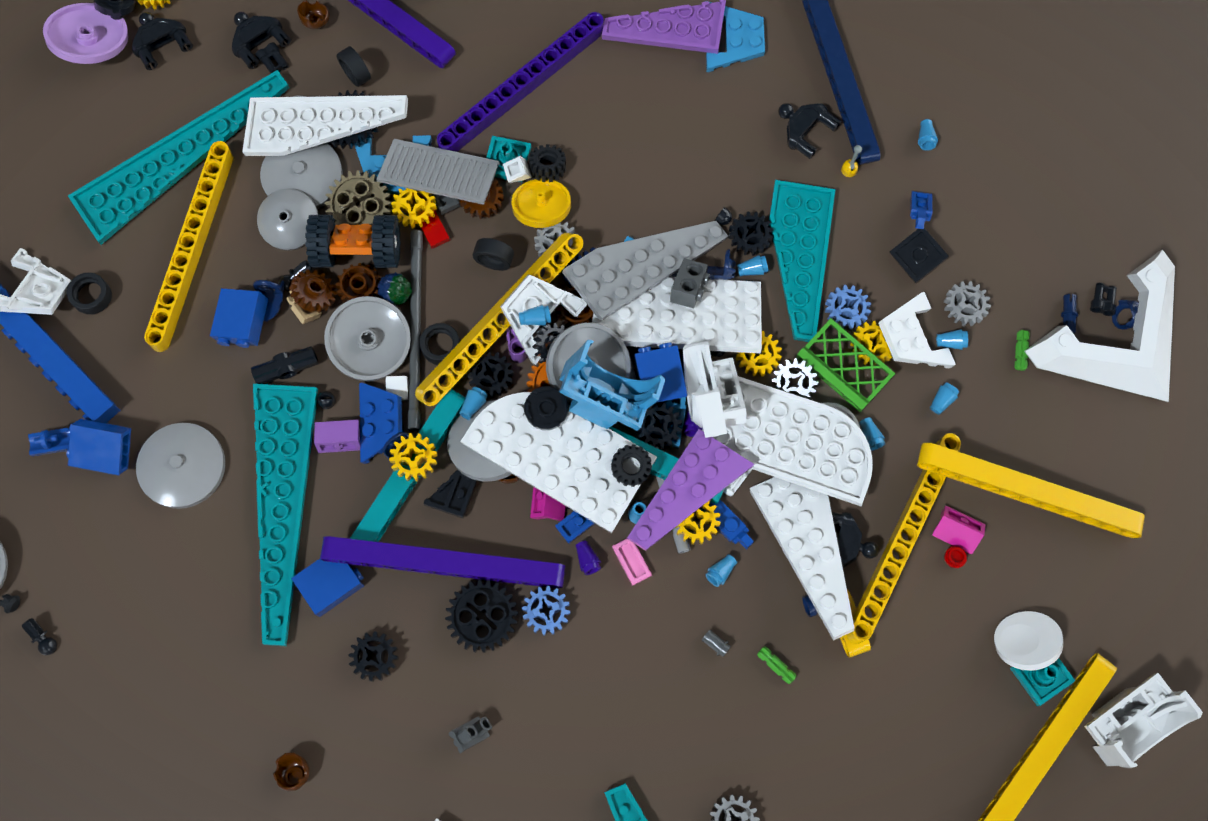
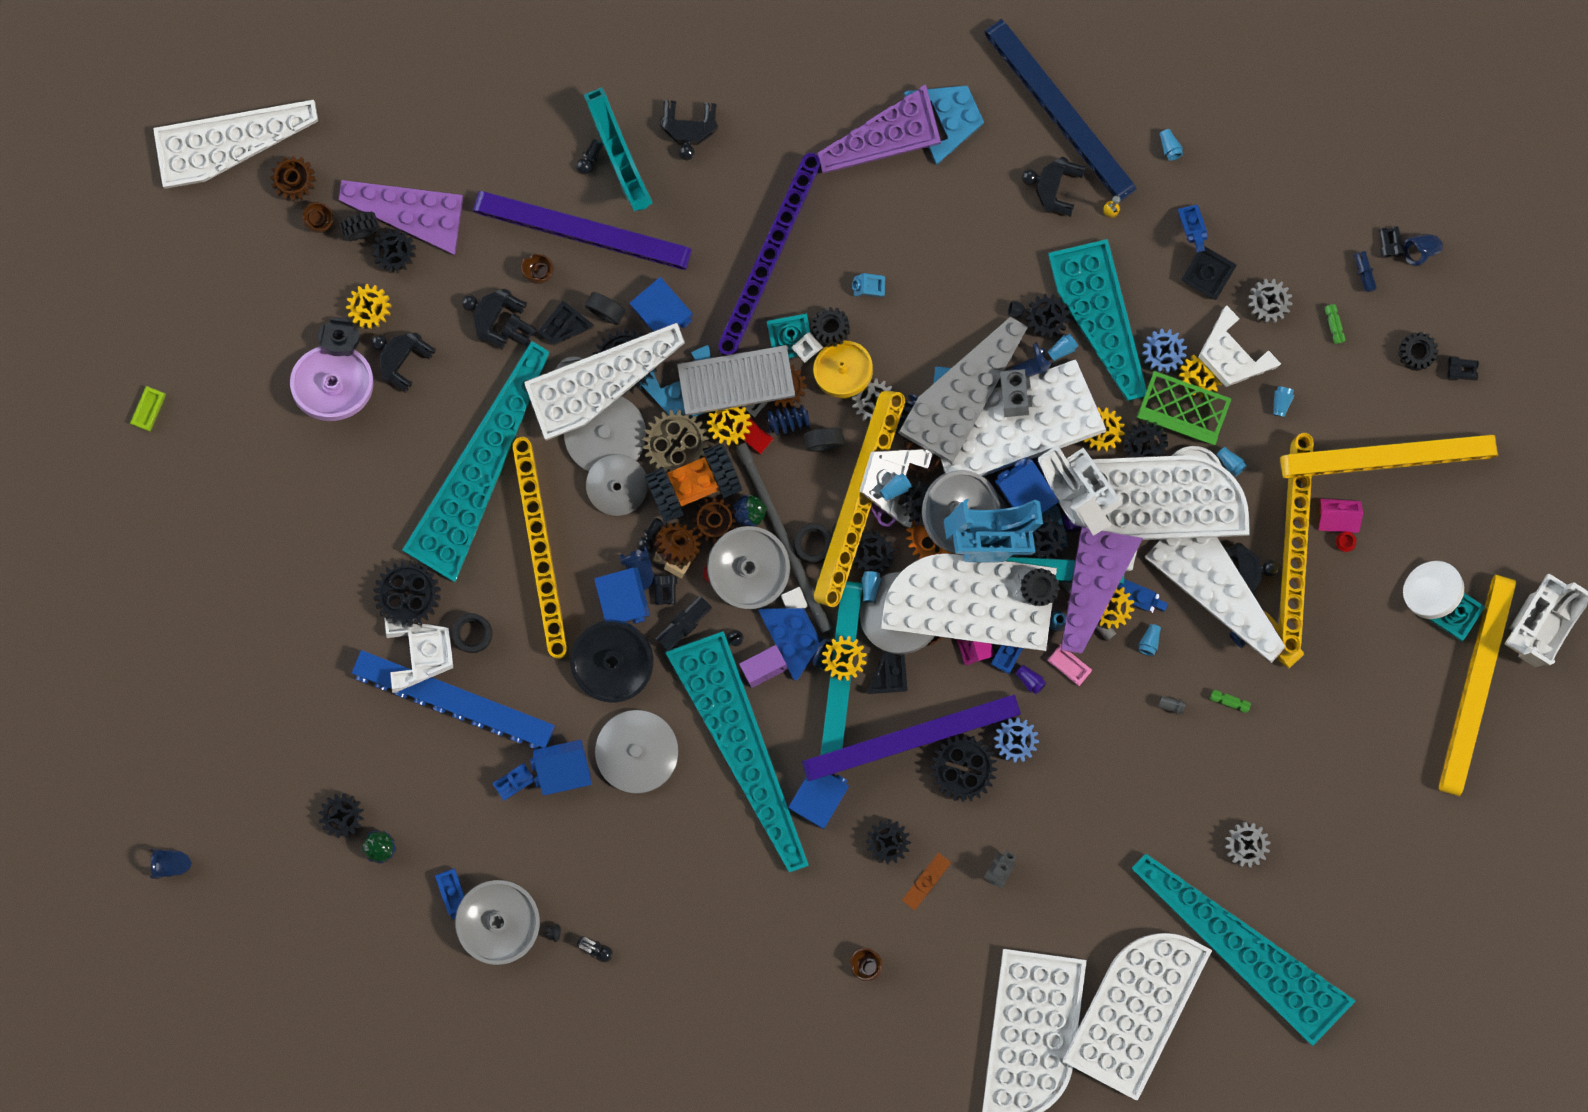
camera: 25 degrees left, 10 degrees up
(39, 248) = (409, 575): none -> black gear
(198, 369) = (612, 661): none -> black dish
(285, 321) = (665, 581): none -> black piece
(313, 69) = (564, 324): none -> black wing
(394, 714) = (926, 881): none -> dark orange piece
(405, 80) = (661, 307): none -> blue brick
(469, 226) = (788, 419): none -> dark blue piece
(546, 408) = (943, 568): black tile -> none
(599, 143) = (869, 285): none -> dark azure bracket
(955, 339) = (1269, 341): dark azure cone -> none
(1104, 399) = (1407, 357): none -> black tyre
(1125, 440) = (1455, 369): none -> black piece
(1144, 366) = (1450, 290): white wedge -> none

